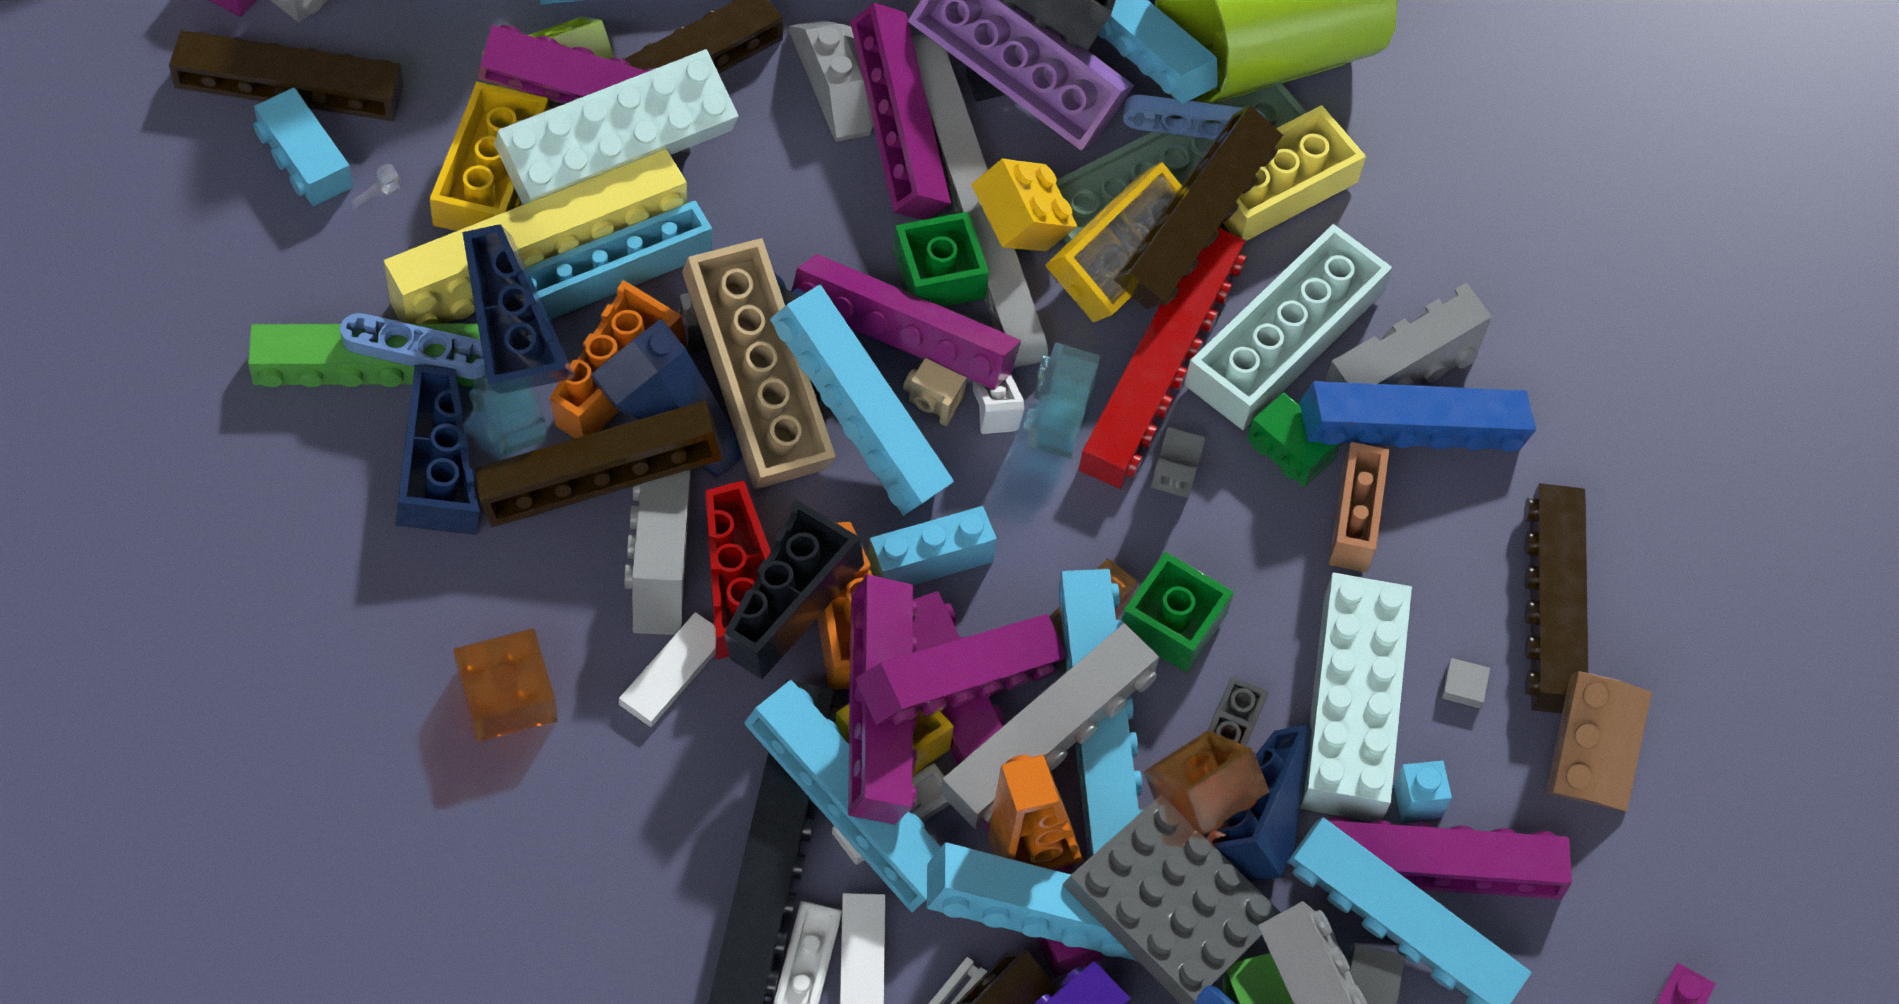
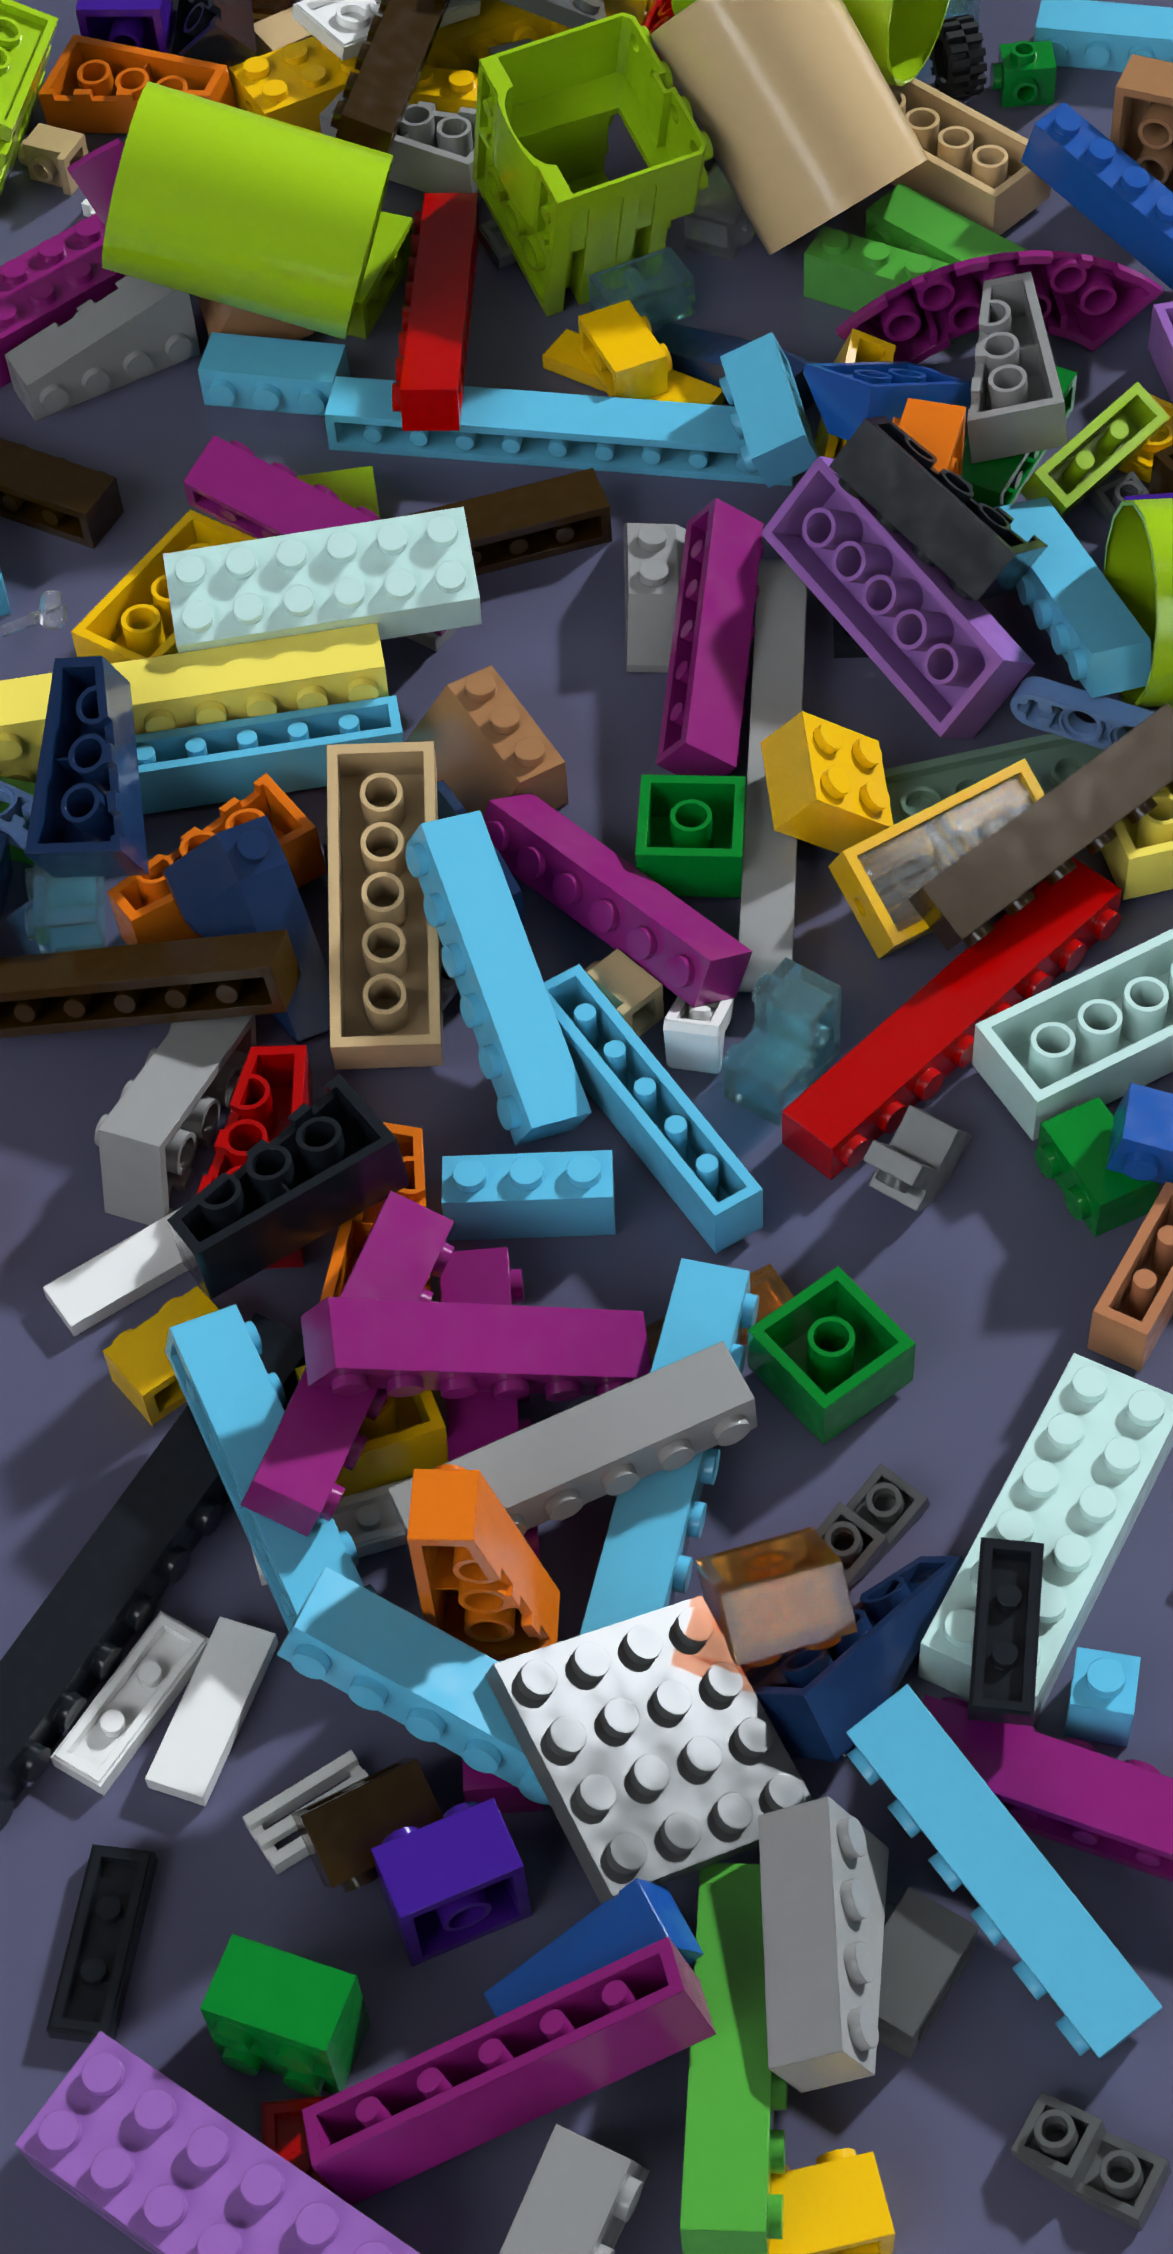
camera: 30 degrees right, 5 degrees down
(721, 732) = (140, 1362): none -> yellow brick
(761, 207) = (490, 744): none -> medium nougat slope
(999, 473) = (655, 1114): none -> medium azure brick
(1361, 766) = (1006, 1632): none -> black tile

